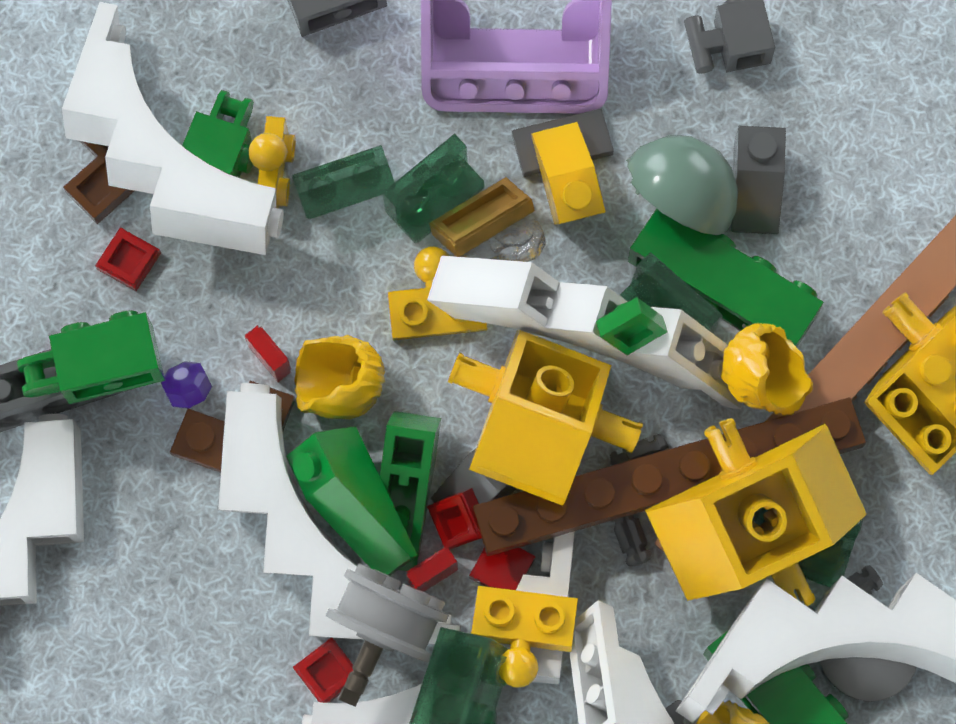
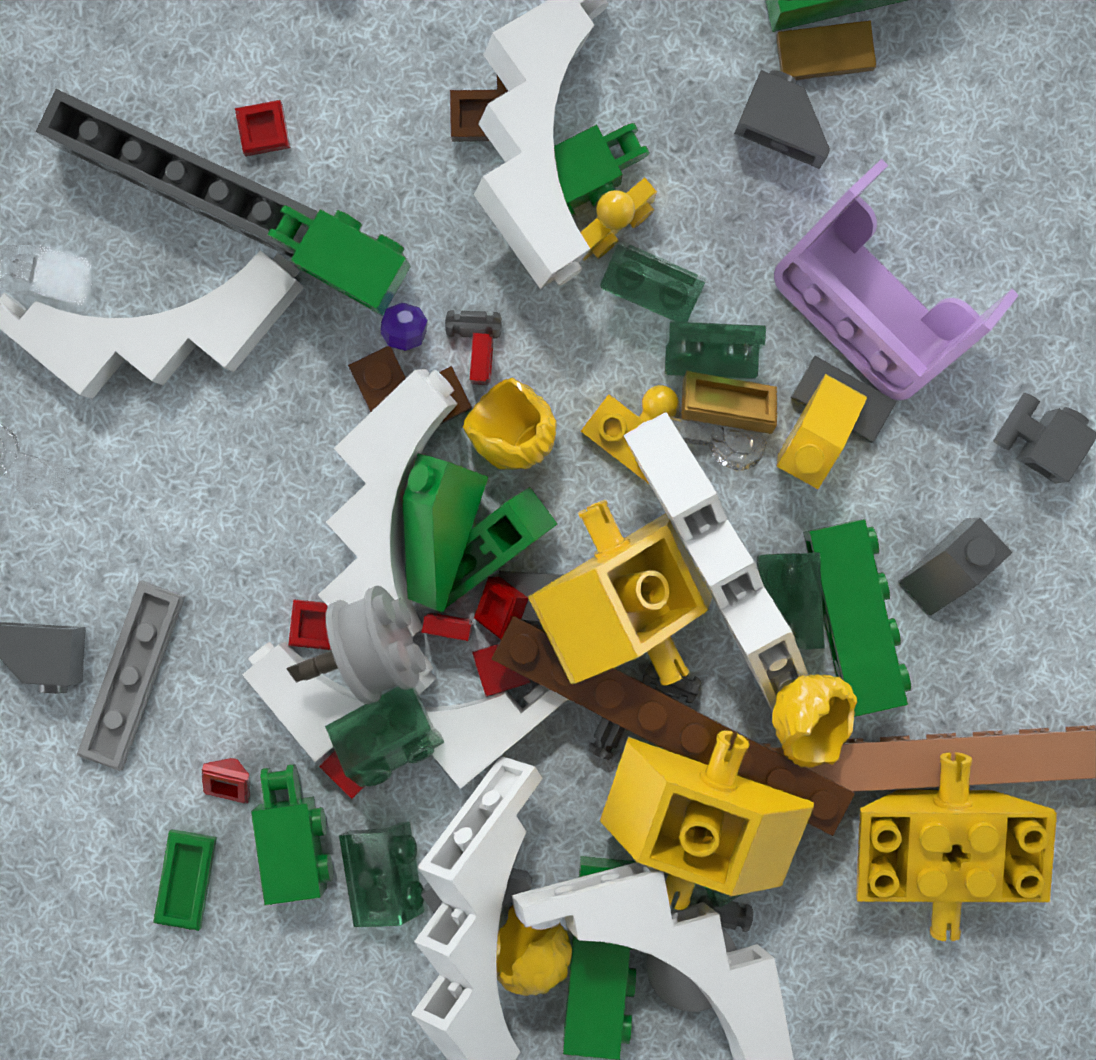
camera: 35 degrees right, 15 degrees up
(128, 259) = (449, 190): red tile -> none
(233, 337) = (473, 322): none -> dark grey piece
(524, 622) = (469, 730): yellow plate -> none
(631, 326) = (743, 607): green plate -> none
(686, 182) = (897, 523): sand green cylinder -> none

